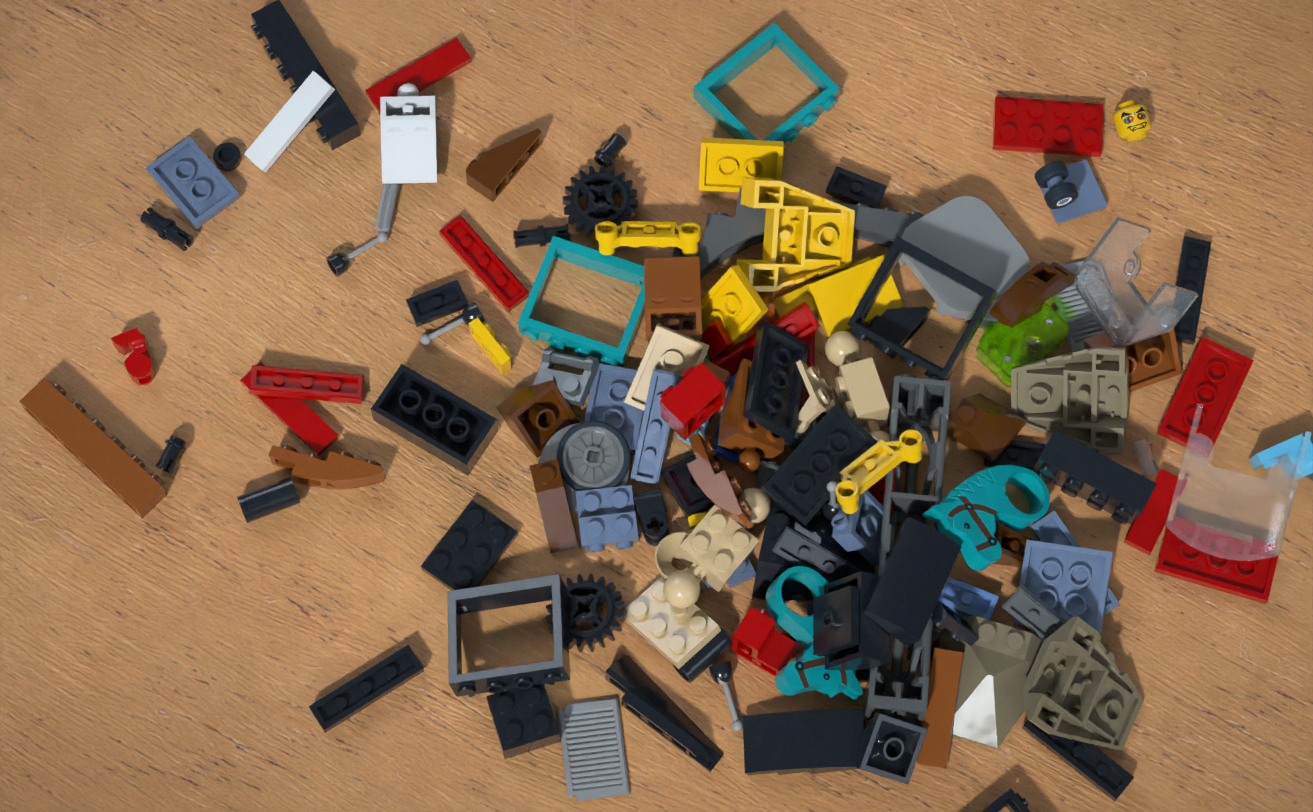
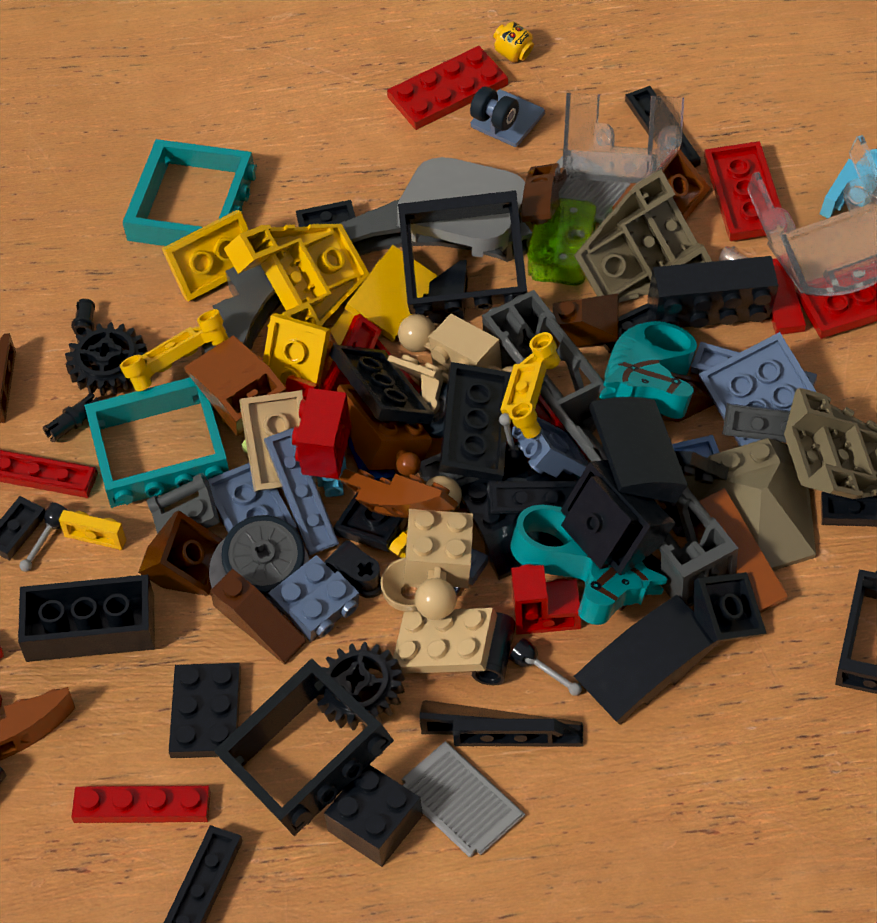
camera: 30 degrees left, 15 degrees down
(376, 591) = (140, 804): none -> red plate

